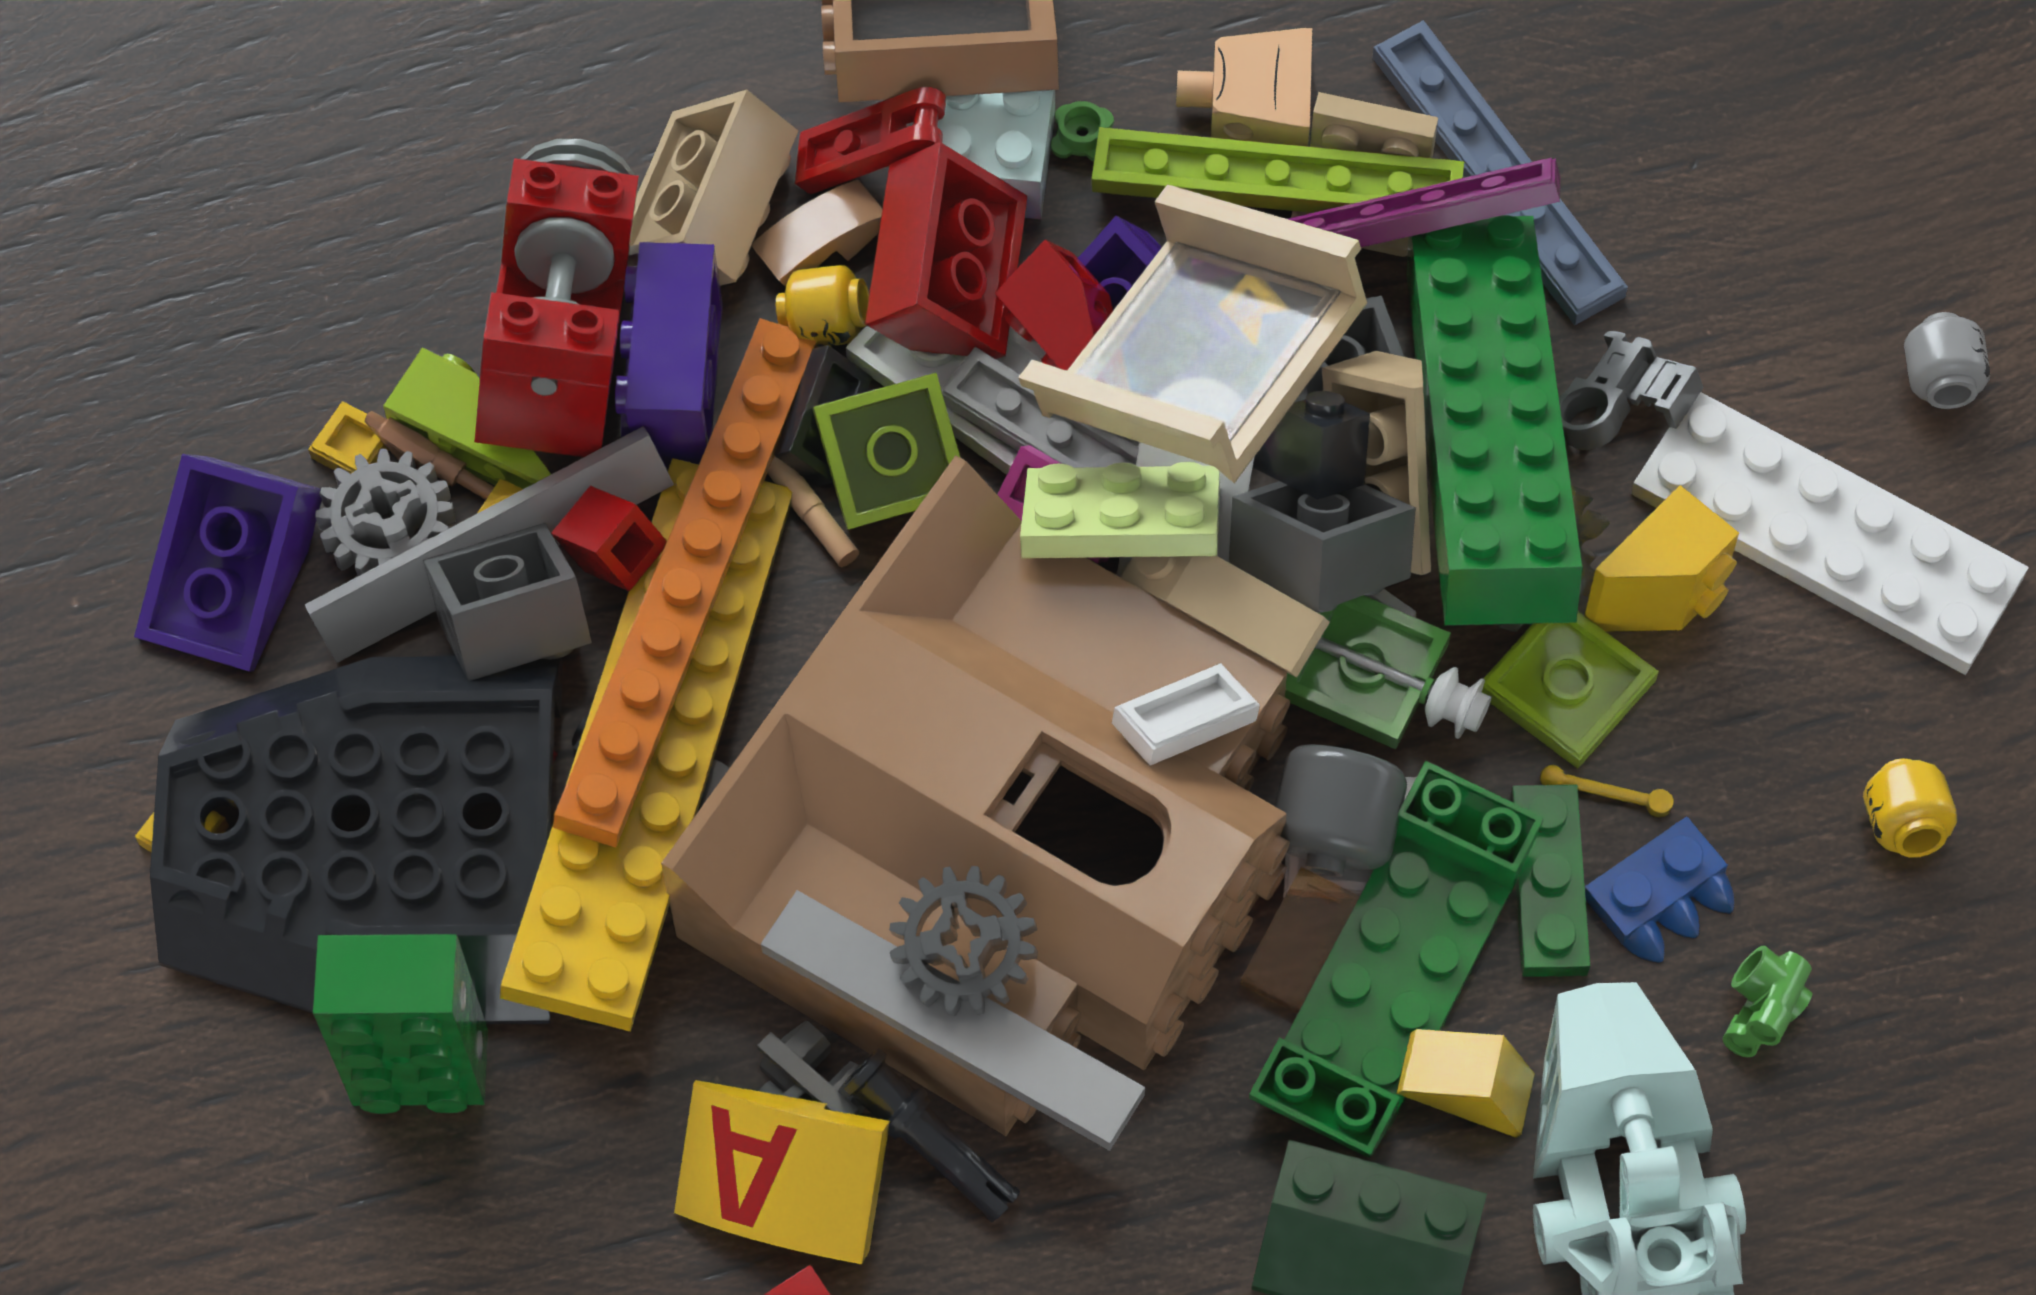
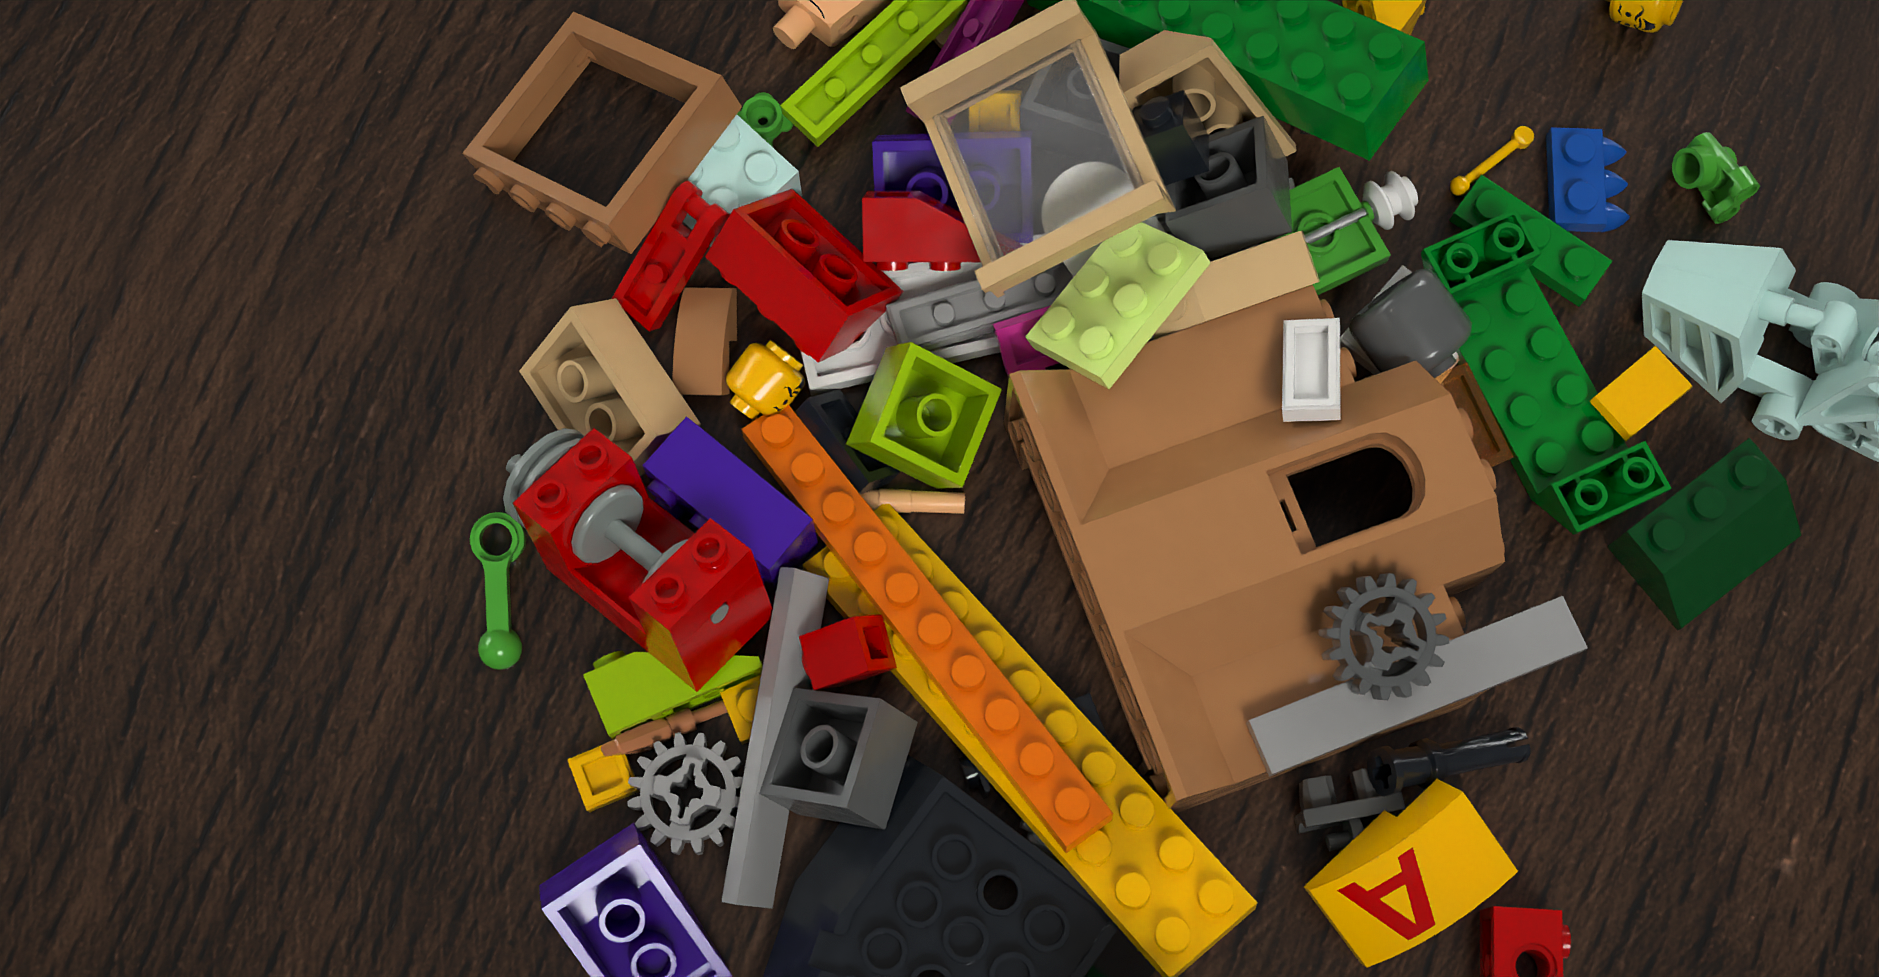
camera: 55 degrees left, 10 degrees up
(407, 277) = (499, 645): none -> bright green piece
(1568, 685) = (1420, 141): lime tile -> none

